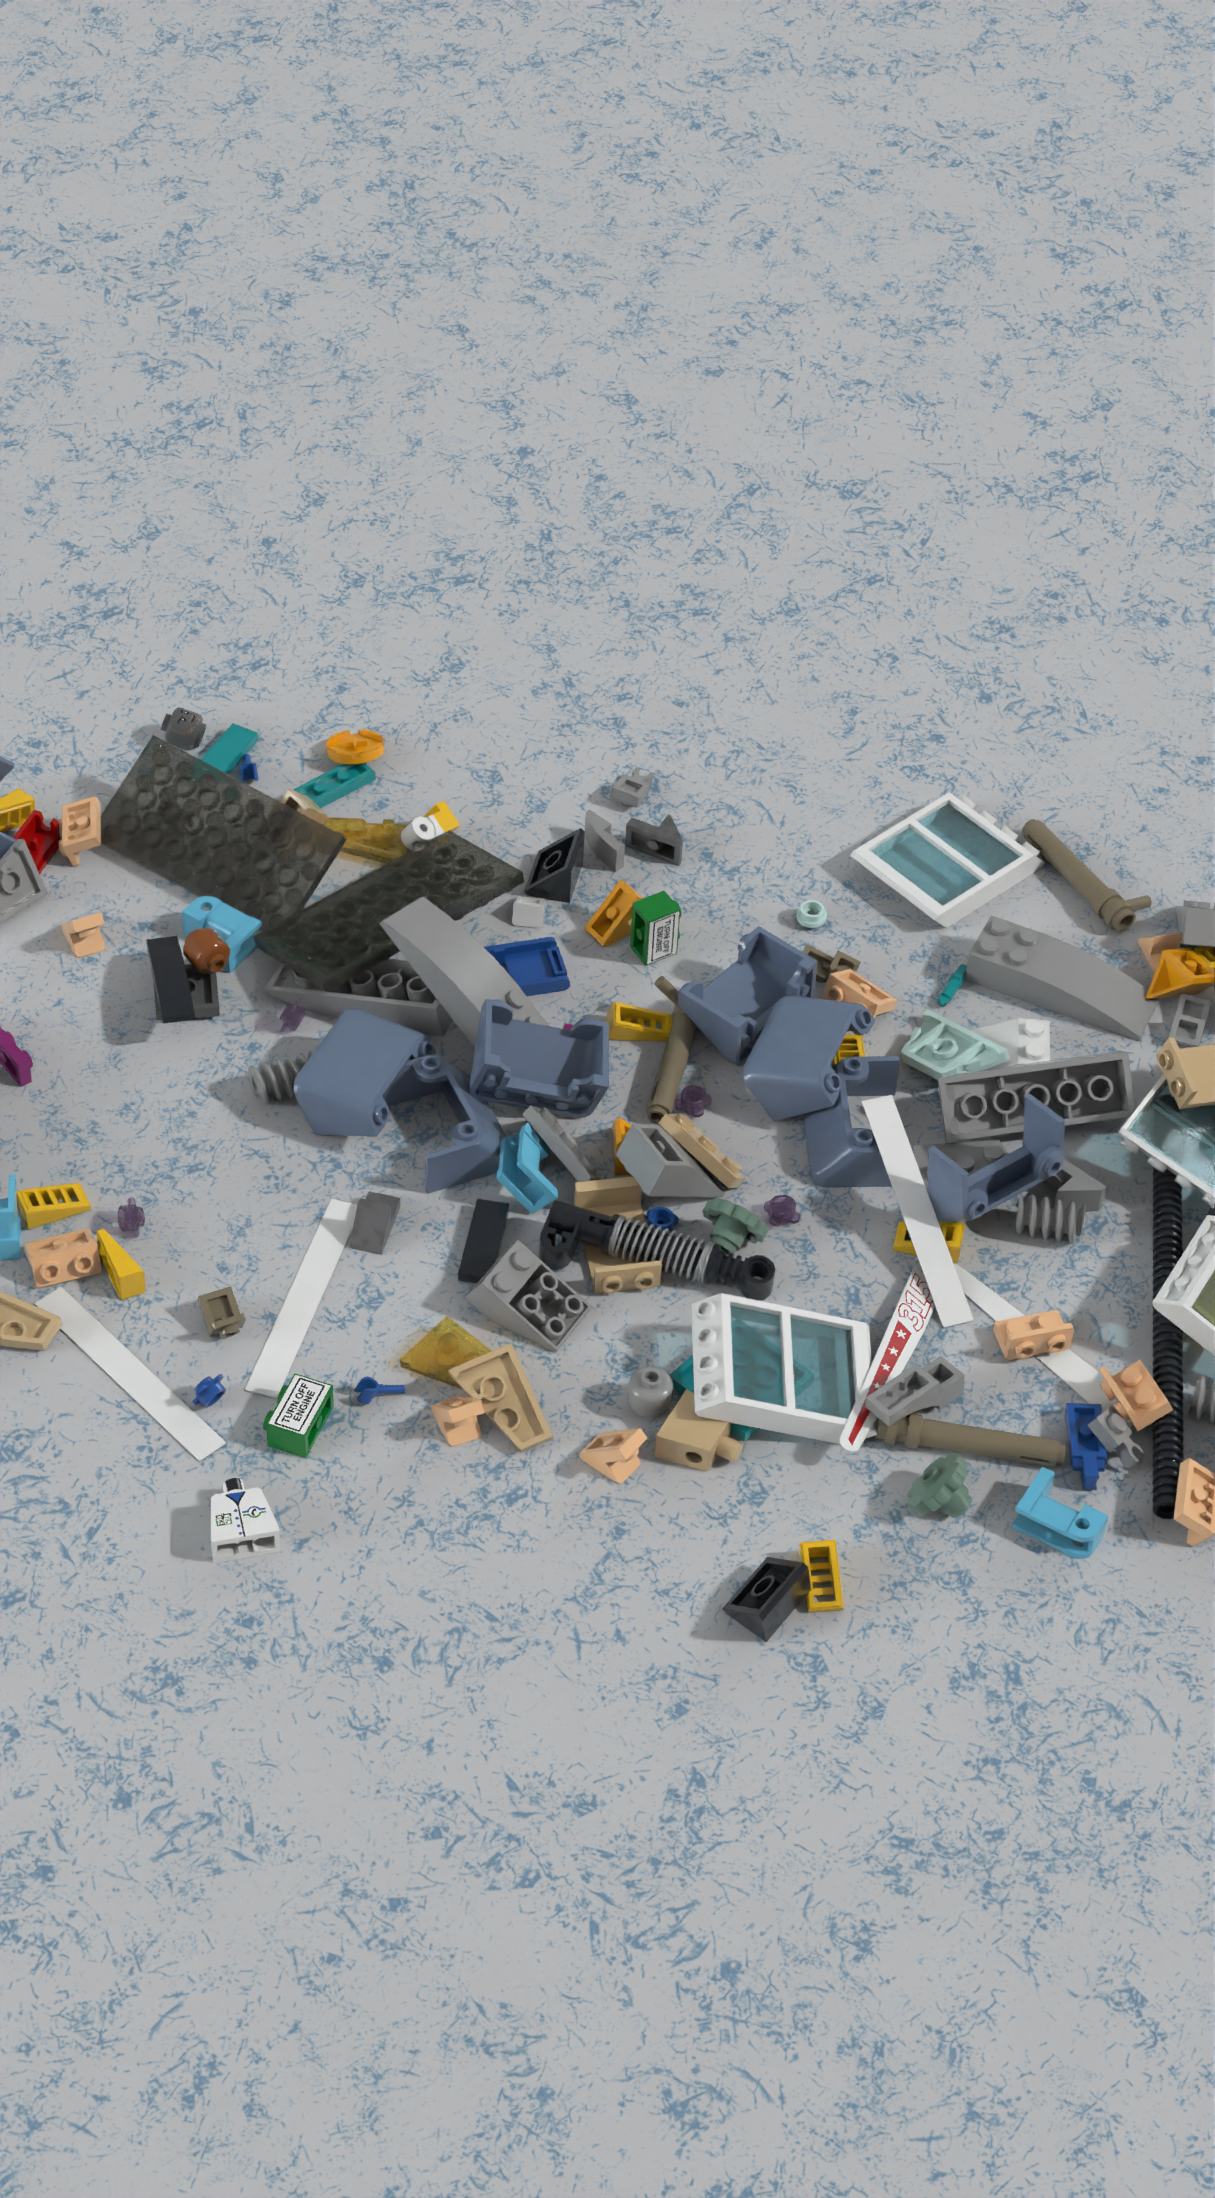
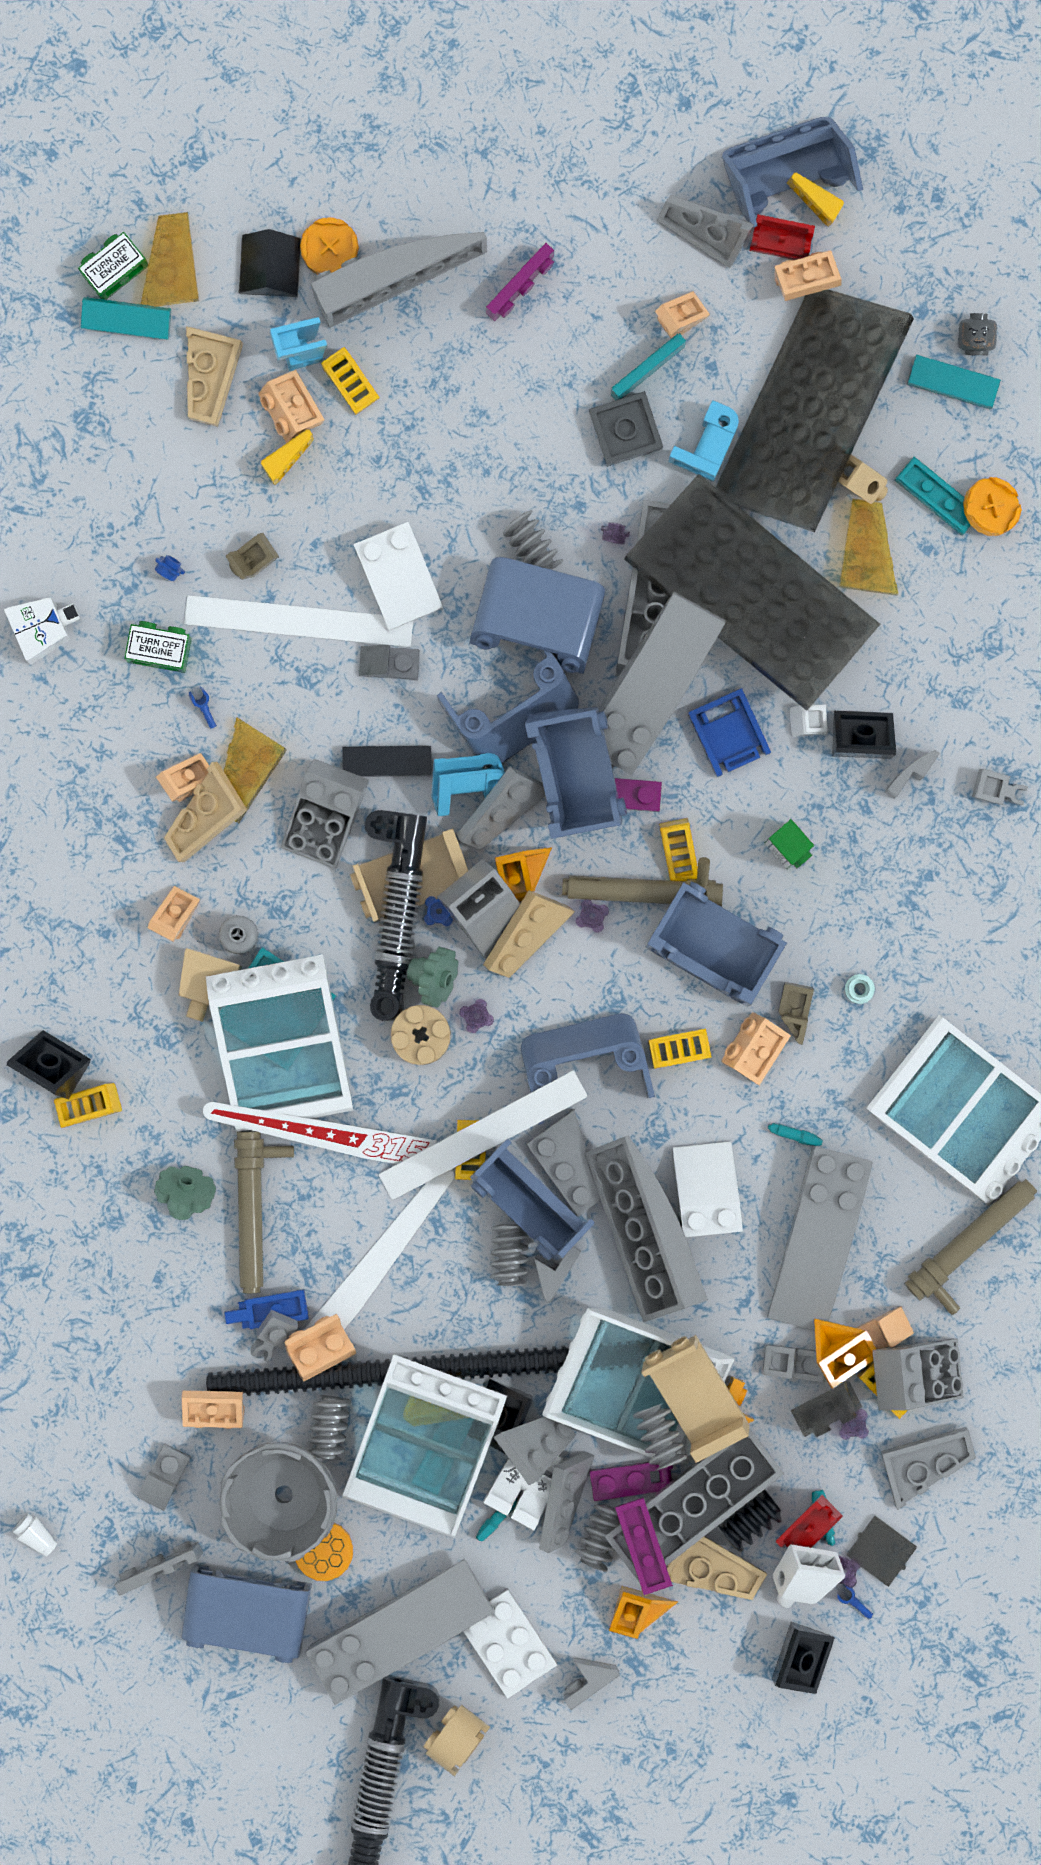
camera: 80 degrees right, 40 degrees up
(128, 962) = (648, 367): none -> teal tile
(131, 1217) = (343, 452): clear purple plate -> none
(132, 1375) = (185, 495): white sticker -> none
(170, 979) = (617, 412): black slope -> none
(206, 950) = (659, 436): dark orange head -> none
(248, 770) = (938, 410): blue hand -> none
(280, 1194) = (398, 576): none -> white slope
(432, 824) = (883, 606): white leg -> none
(613, 917) = (807, 803): light orange slope -> none
(659, 842) = (923, 831): flat silver slope -> none
(794, 1054) = (649, 1006): sand blue windscreen -> none
(798, 1251) = (404, 1039): none -> tan brick
(915, 1390) = (278, 1159): light grey slope -> none
(949, 1049) = (697, 1140): light aqua wing -> none
(1033, 1335) = (378, 1253): light nougat bracket -> none
(1057, 1523) = (177, 1292): medium azure piece -> none

